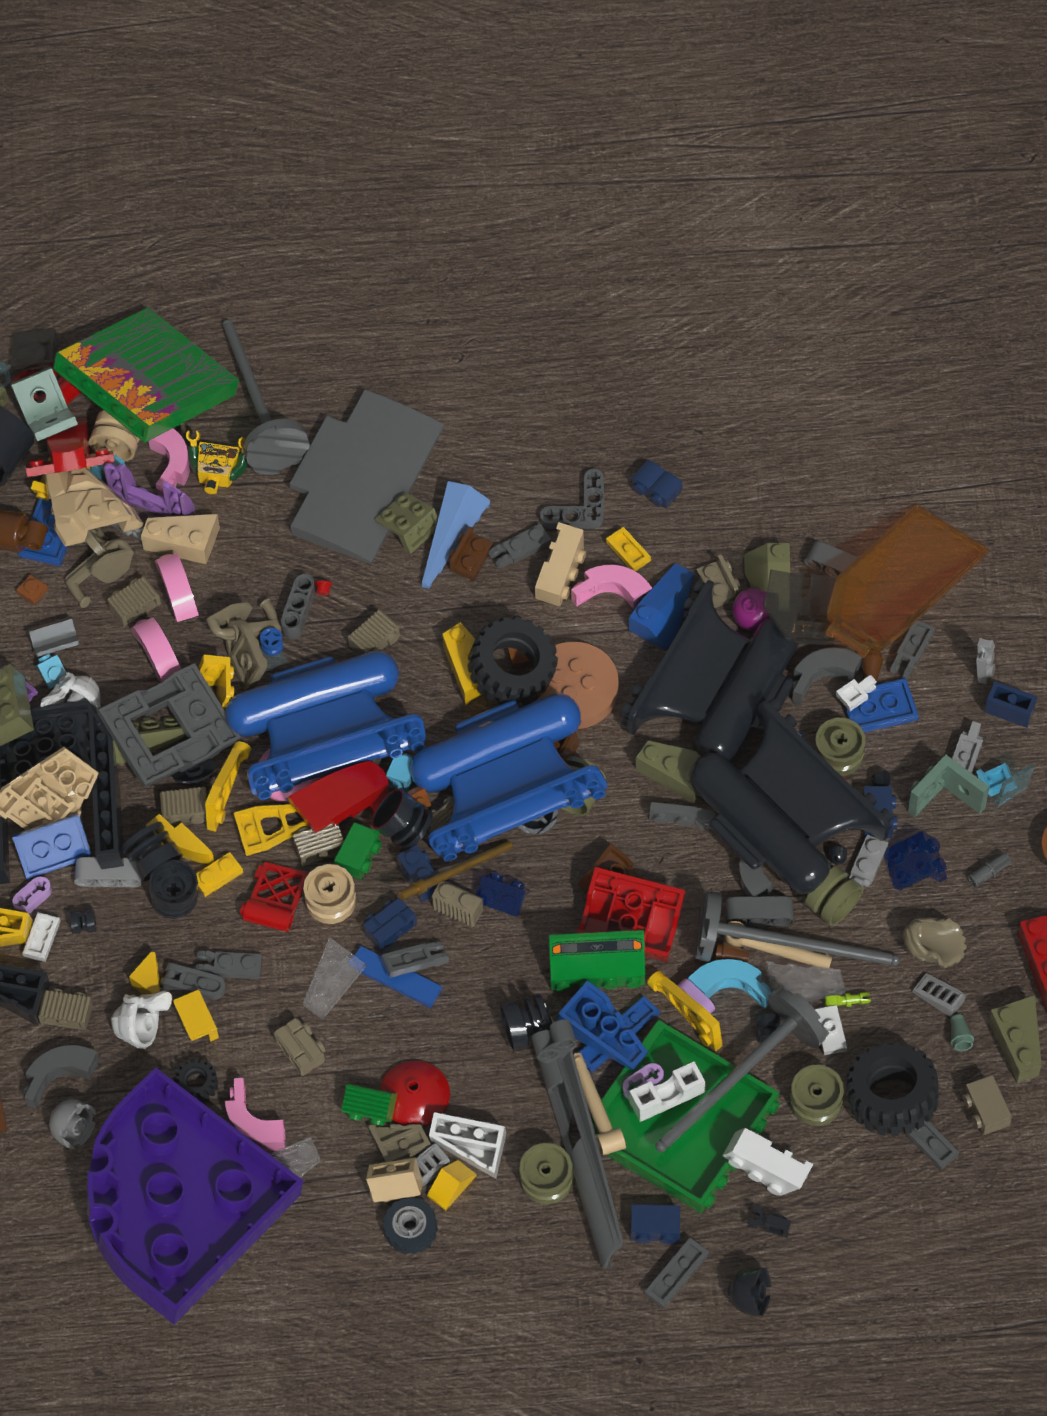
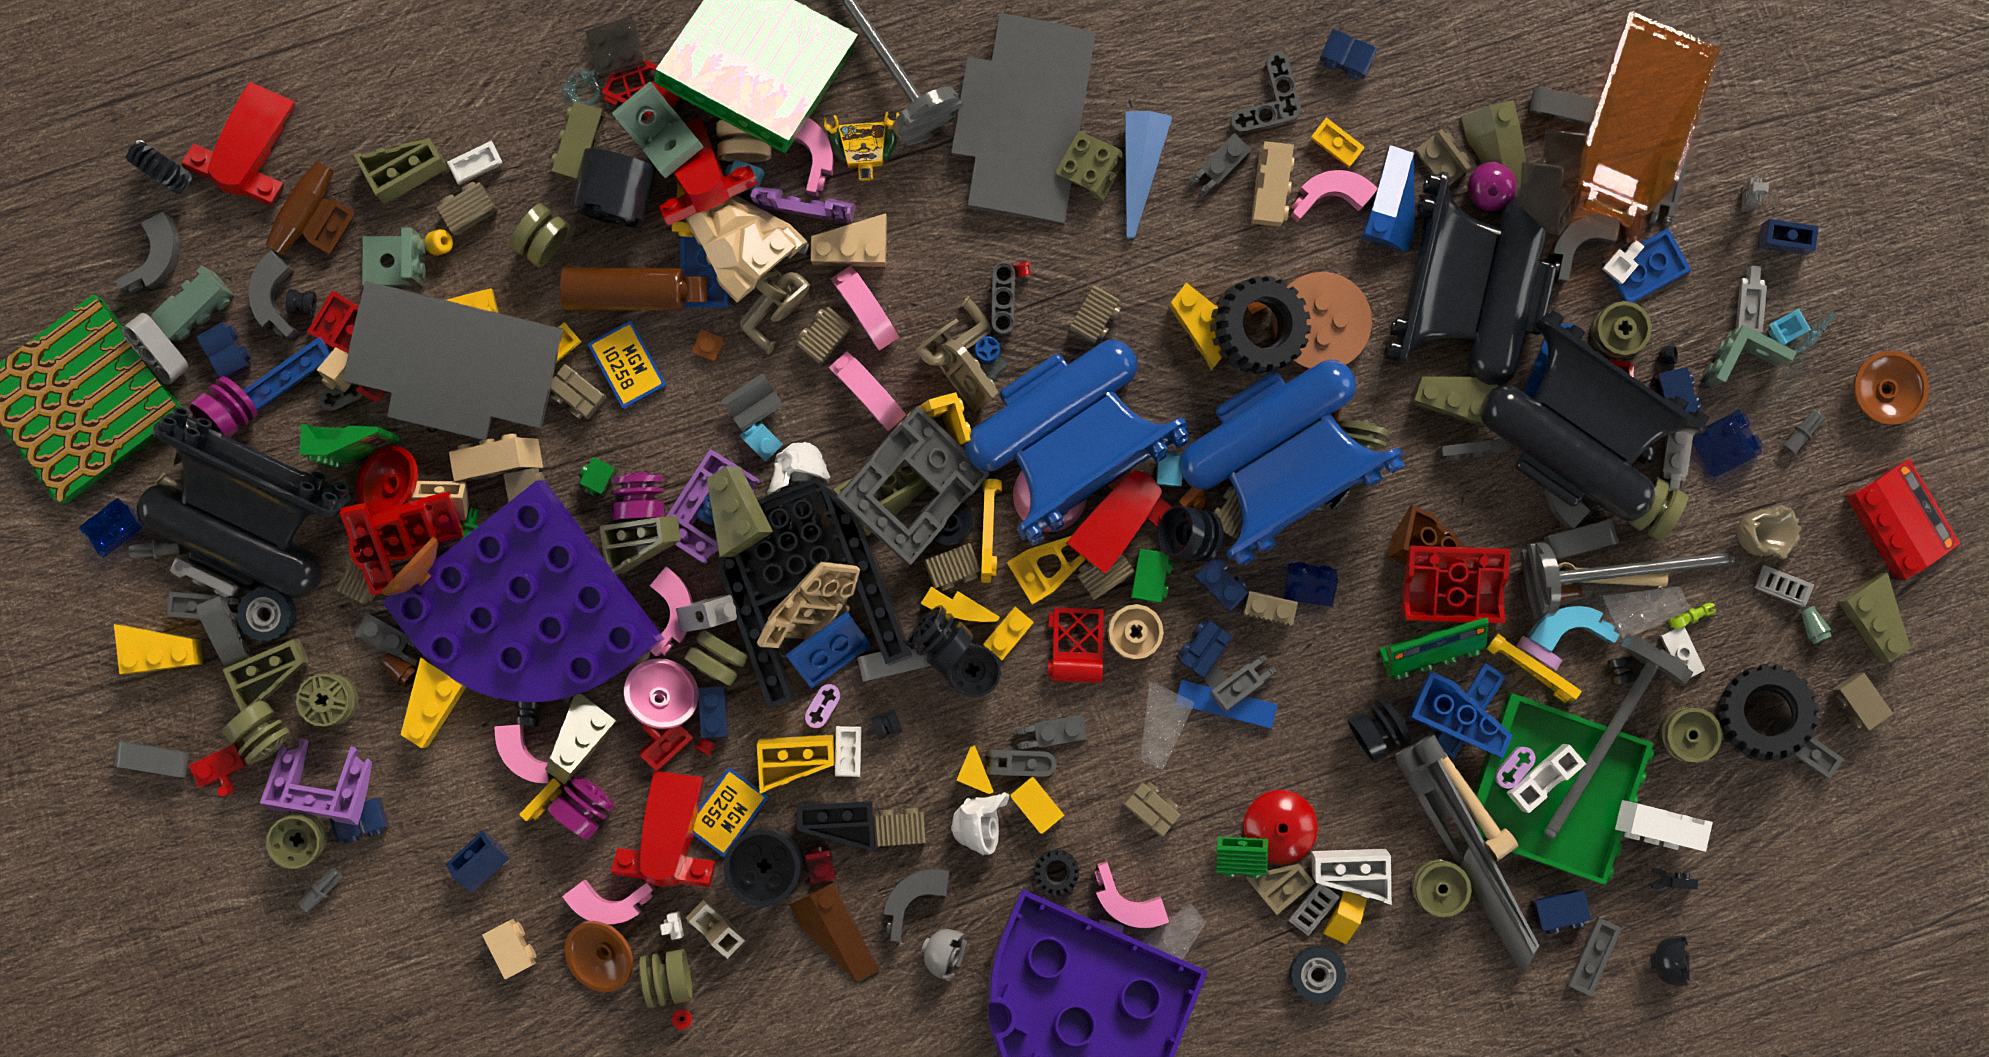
camera: 25 degrees left, 25 degrees up
(394, 1180) = (1292, 935): tan brick -> none
(421, 886) = (1233, 611): pearl gold bar -> none
(469, 555) = (1170, 189): reddish brown bracket -> none

